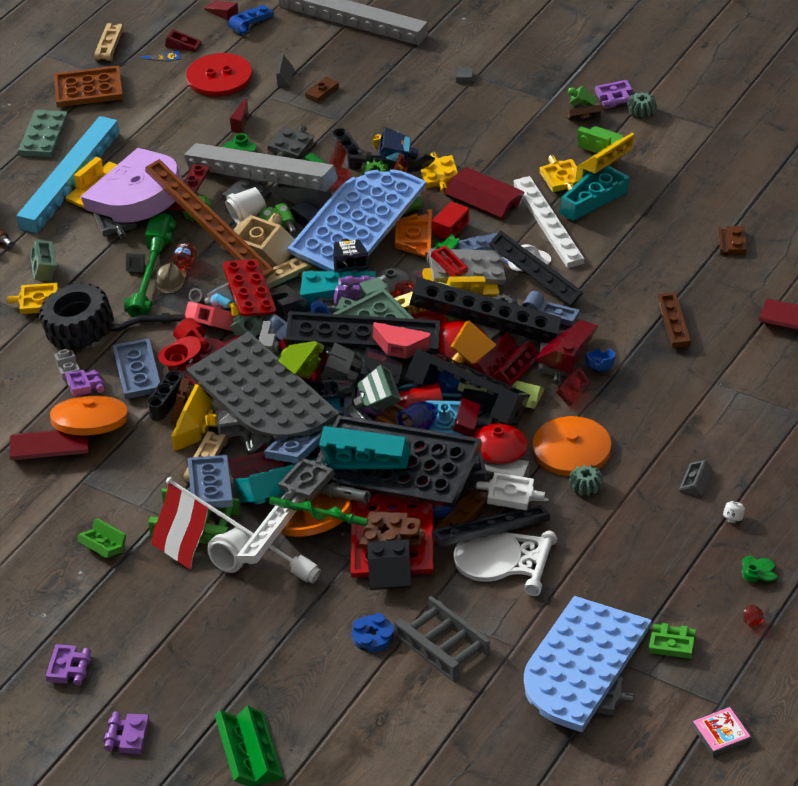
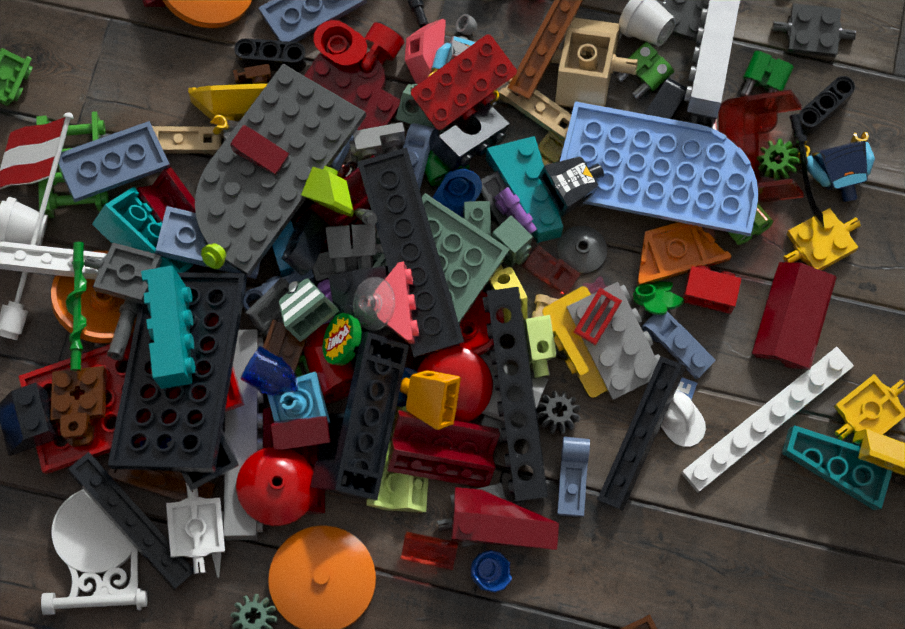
camera: 65 degrees right, 30 degrees up
(250, 385) = (258, 150): none -> dark red slope
(316, 427) = (213, 255): none -> lime plate
(328, 343) = (366, 216): none -> dark grey animal
(397, 355) = (374, 303): none -> clear dish
(412, 373) = (341, 338): none -> tile

